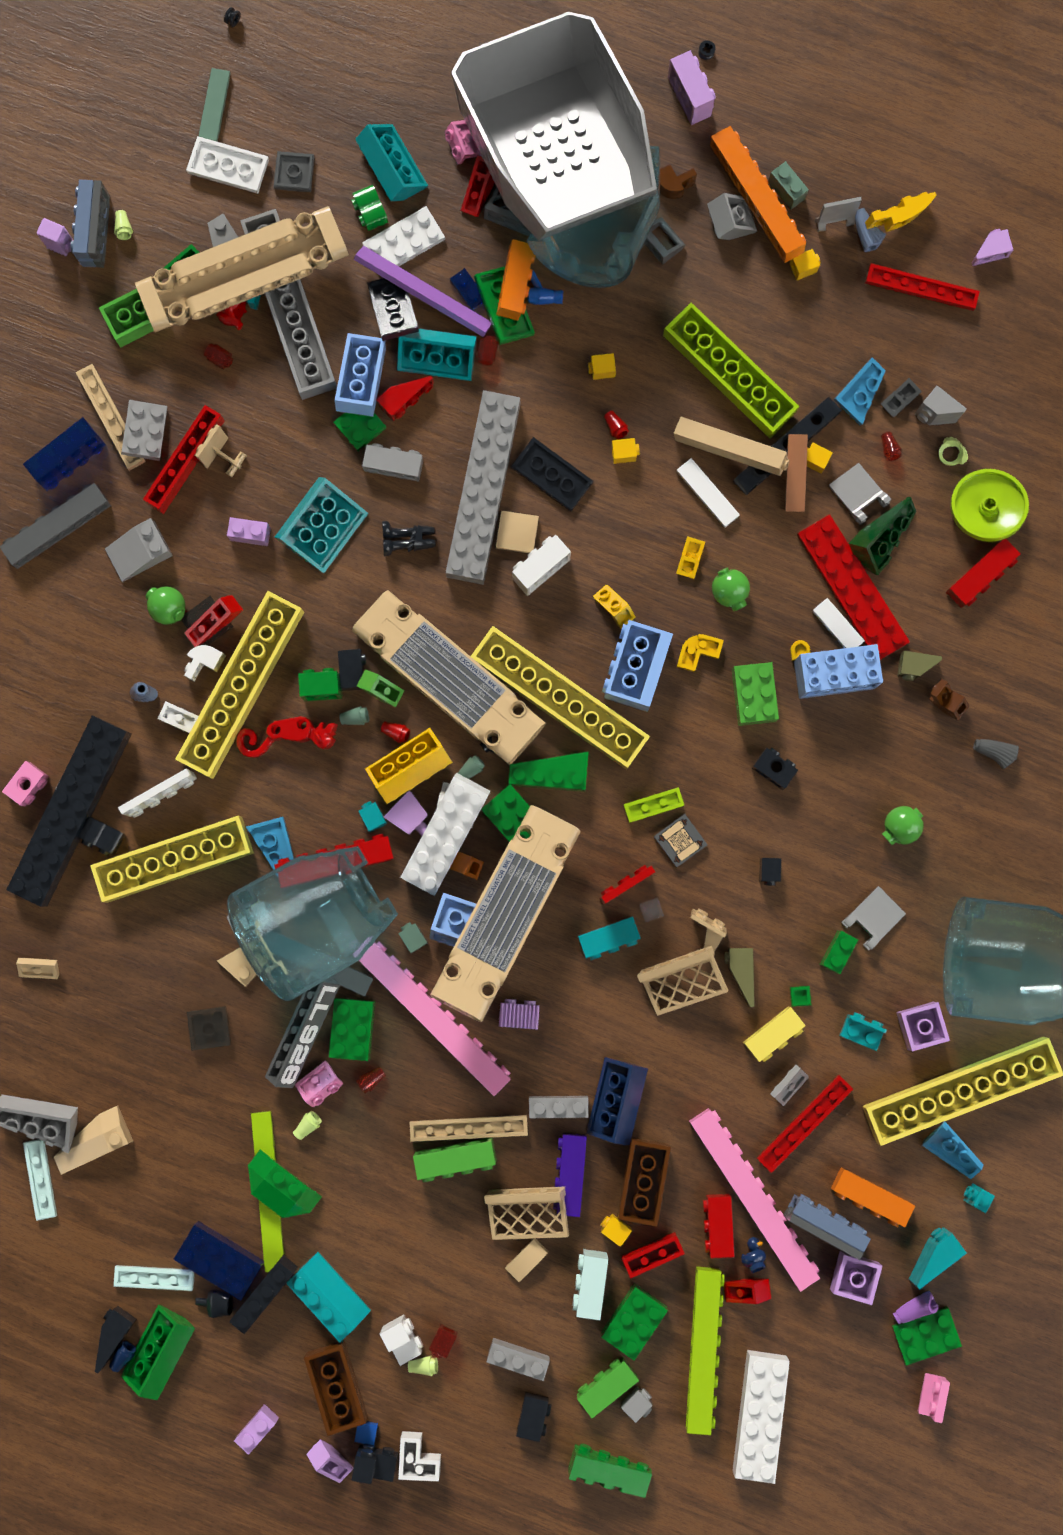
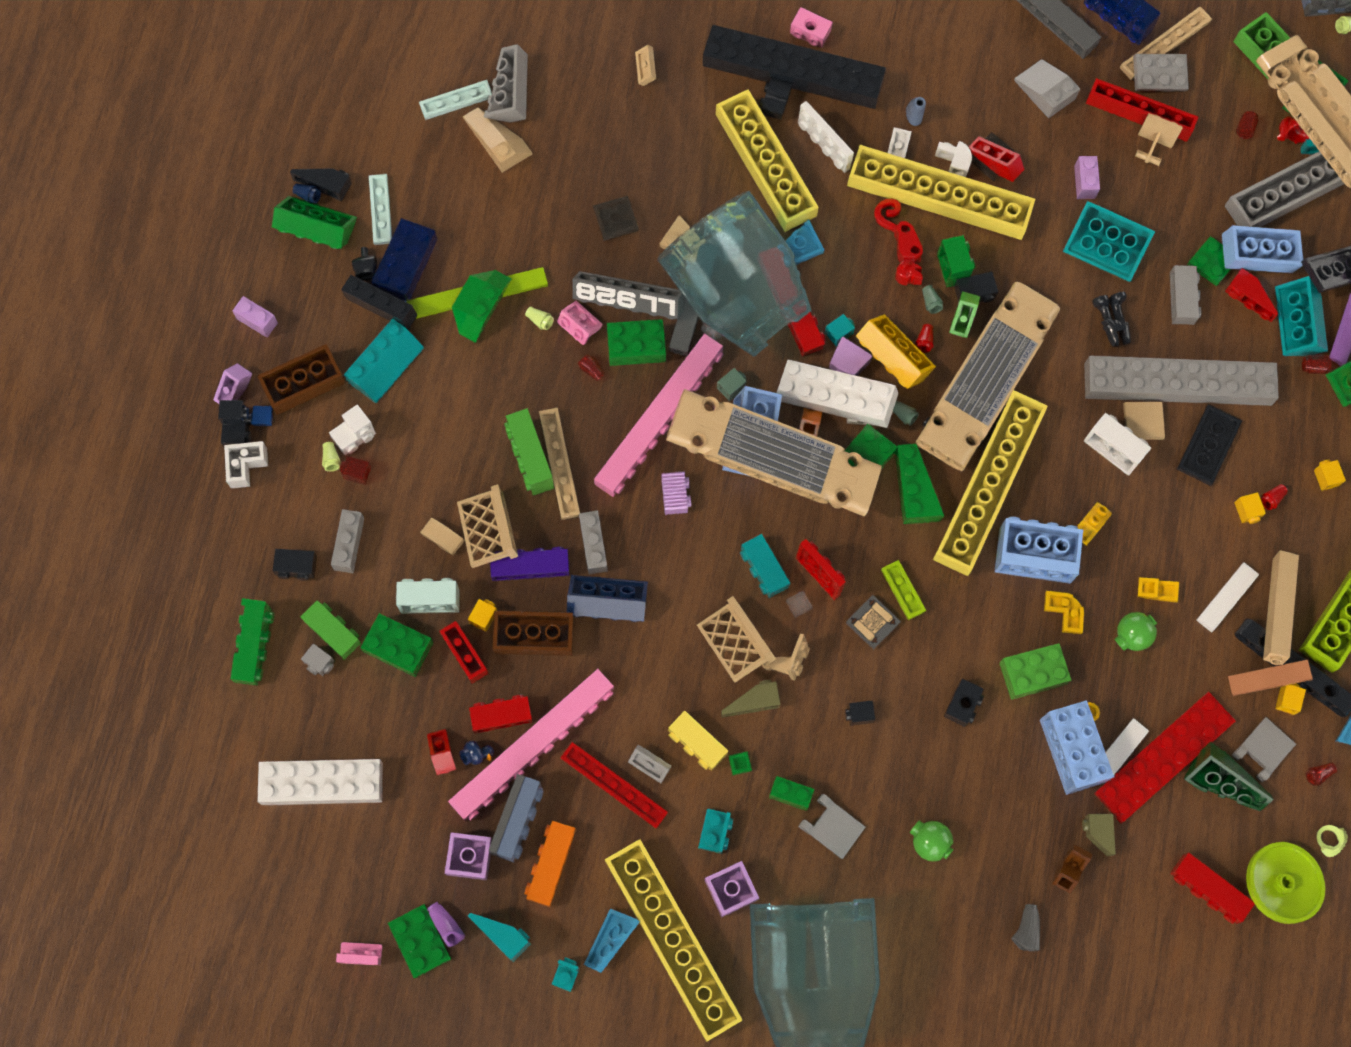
camera: 75 degrees right, 10 degrees down
(165, 605) = (1001, 117): bright green brick -> none
(703, 1351) = (377, 716): lime brick -> none

